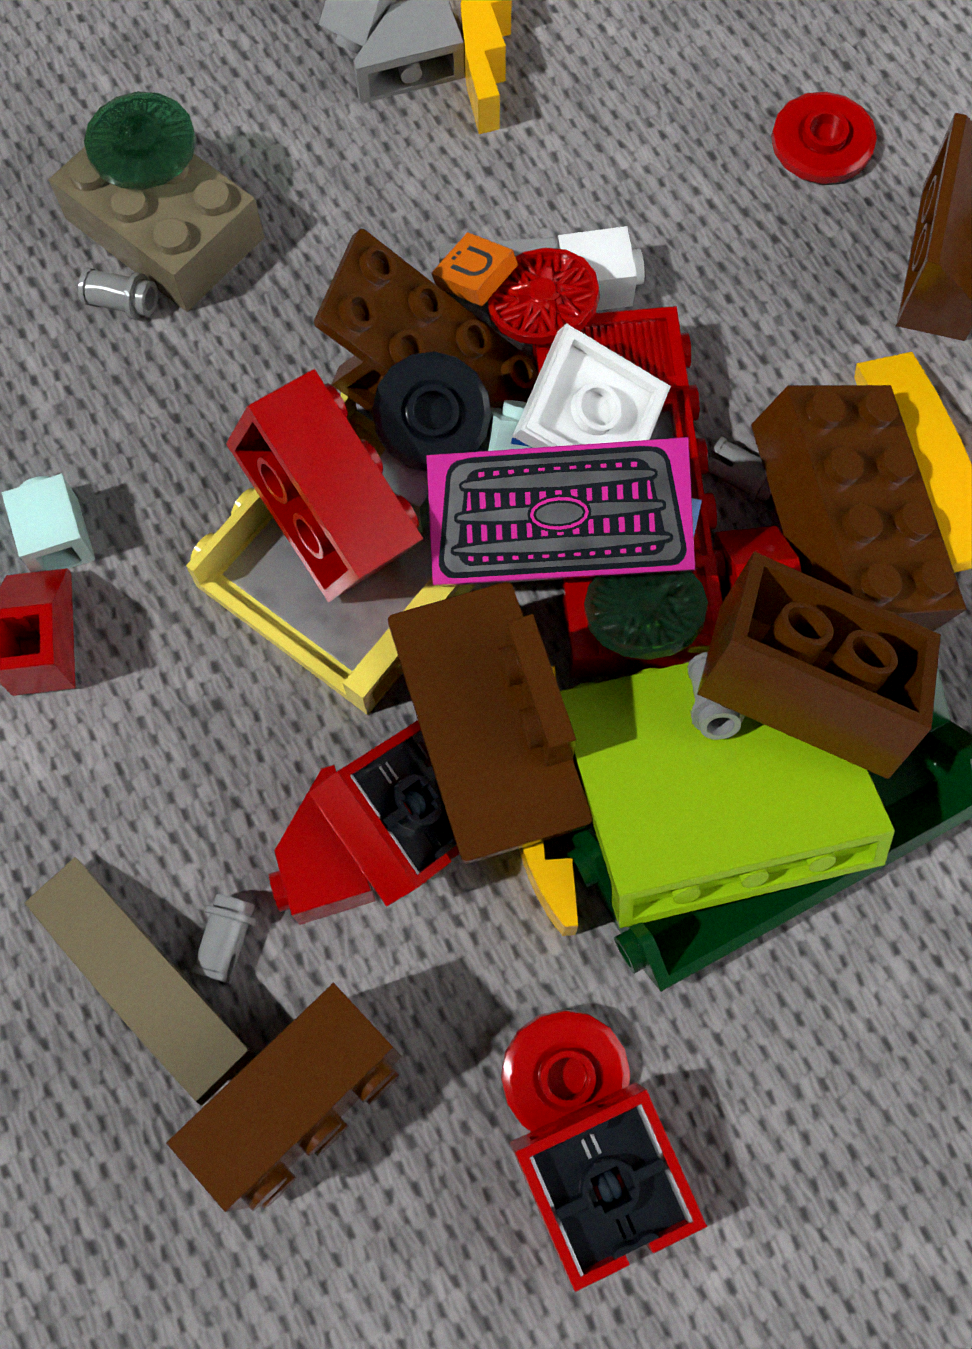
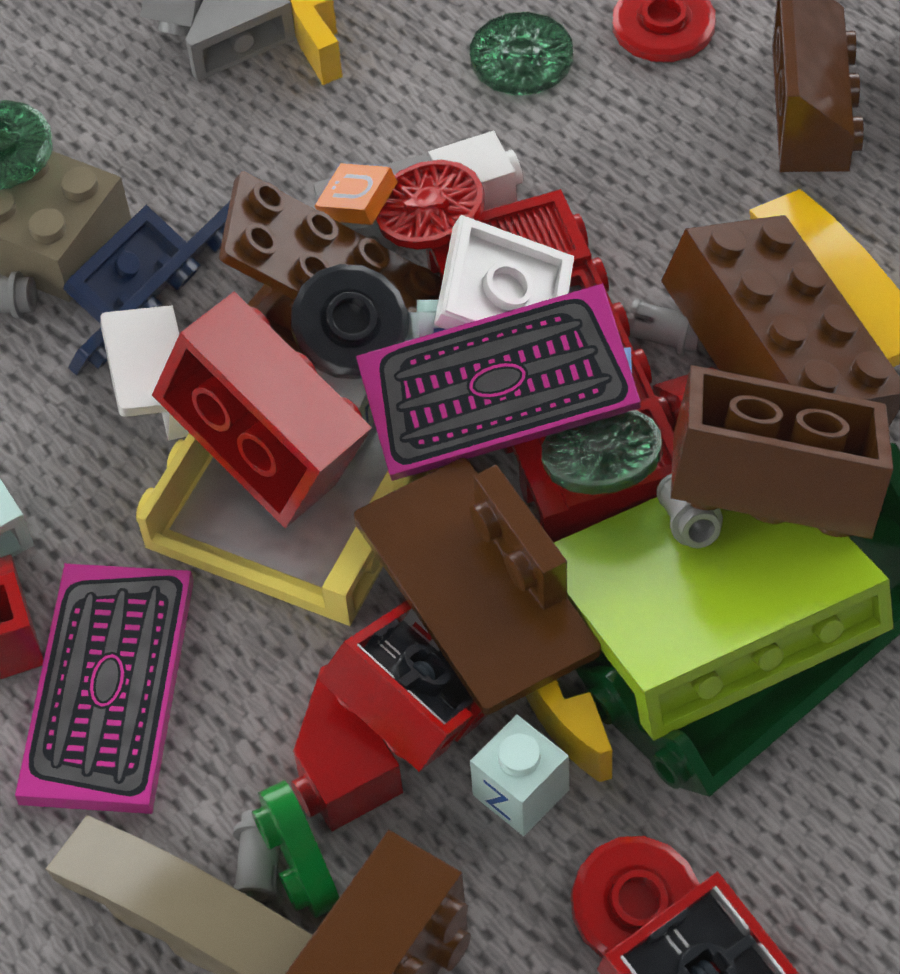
camera: 10 degrees left, 15 degrees down
(125, 727) = (106, 689): none -> tile
(228, 382) = (137, 352): none -> white panel
(243, 300) = (135, 270): none -> dark blue bracket
(246, 930) = (285, 825): none -> green plate
(485, 921) = (520, 775): none -> light aqua brick
(676, 142) = (521, 53): none -> clear green wheel

